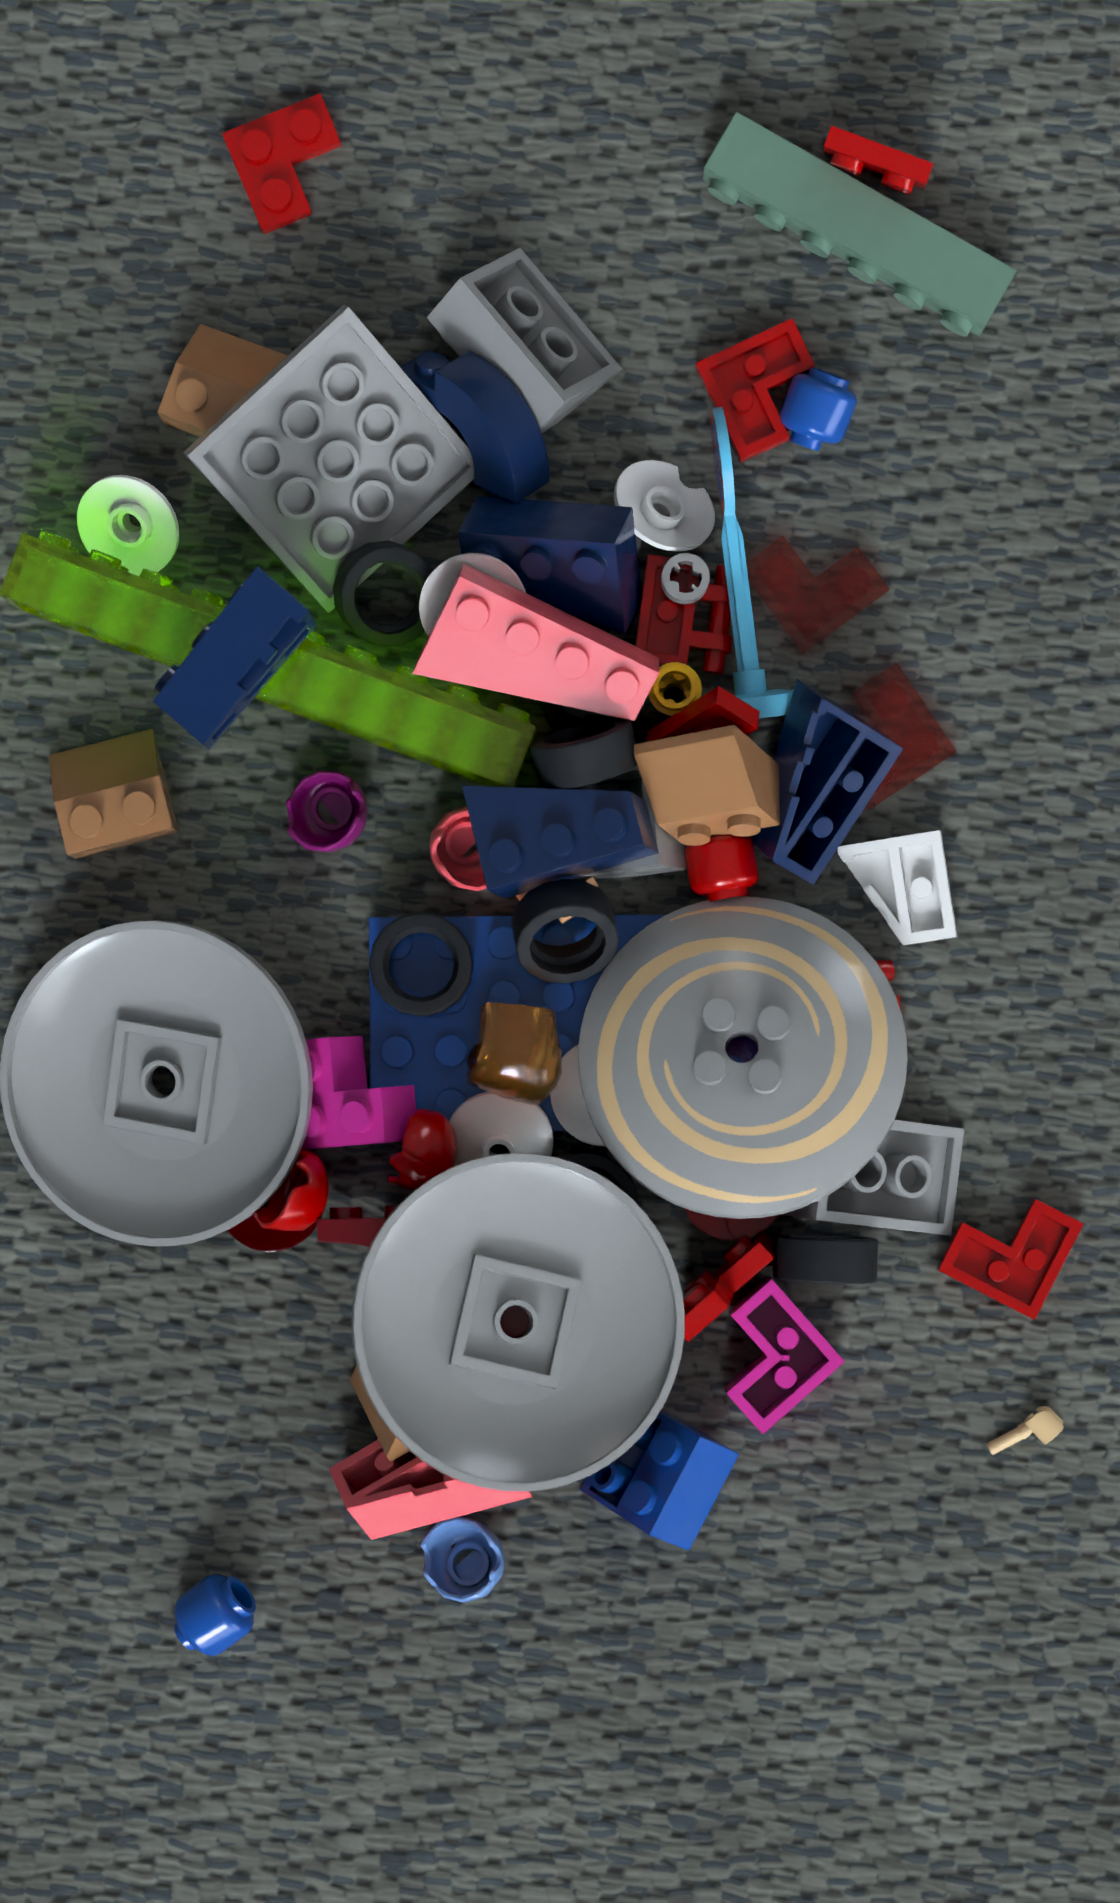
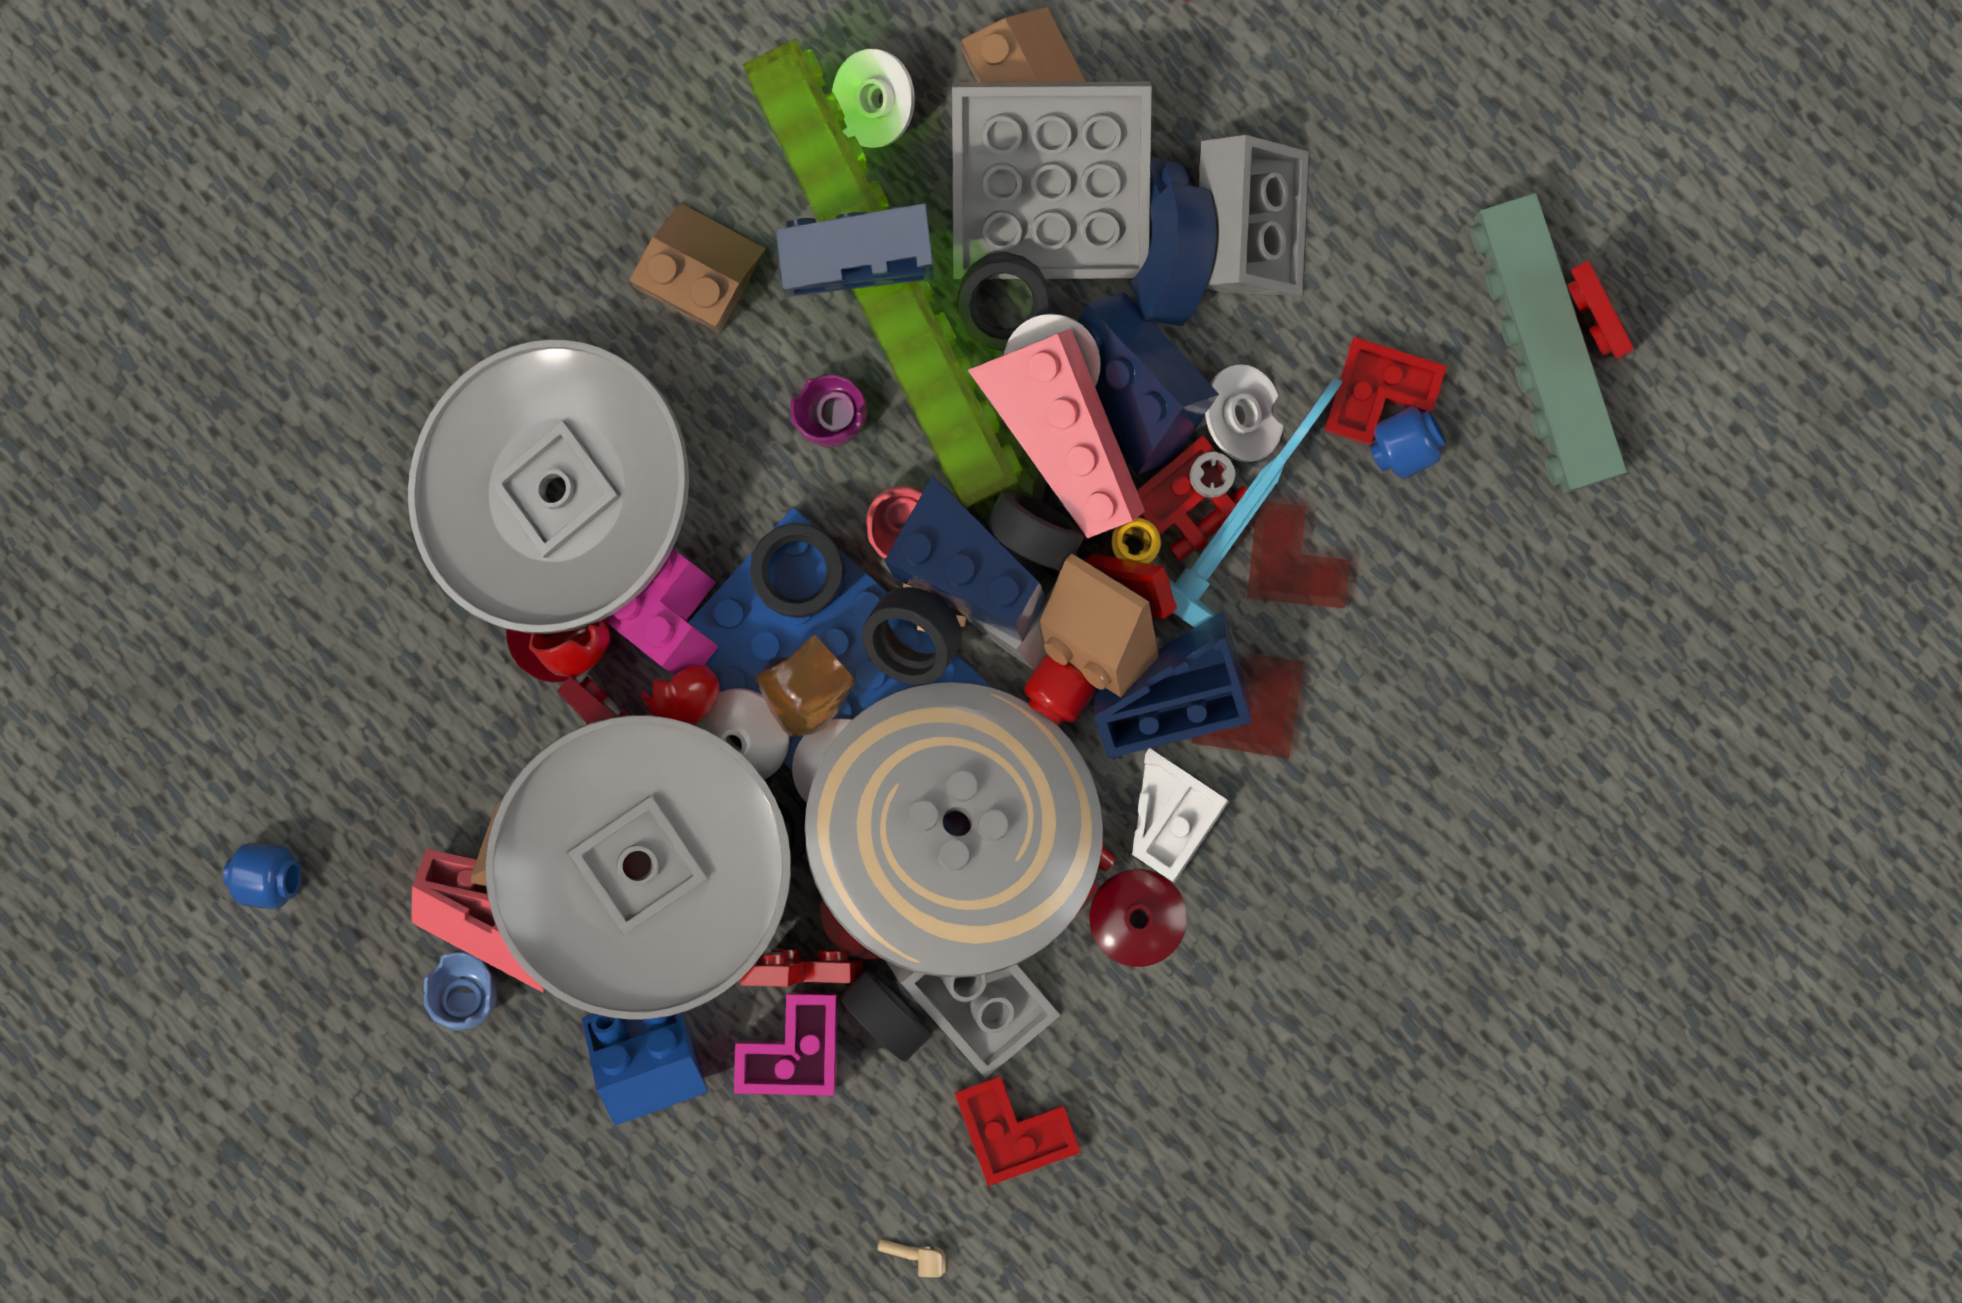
camera: 40 degrees right, 0 degrees up
(926, 999) = (1112, 910): none -> dark red dish

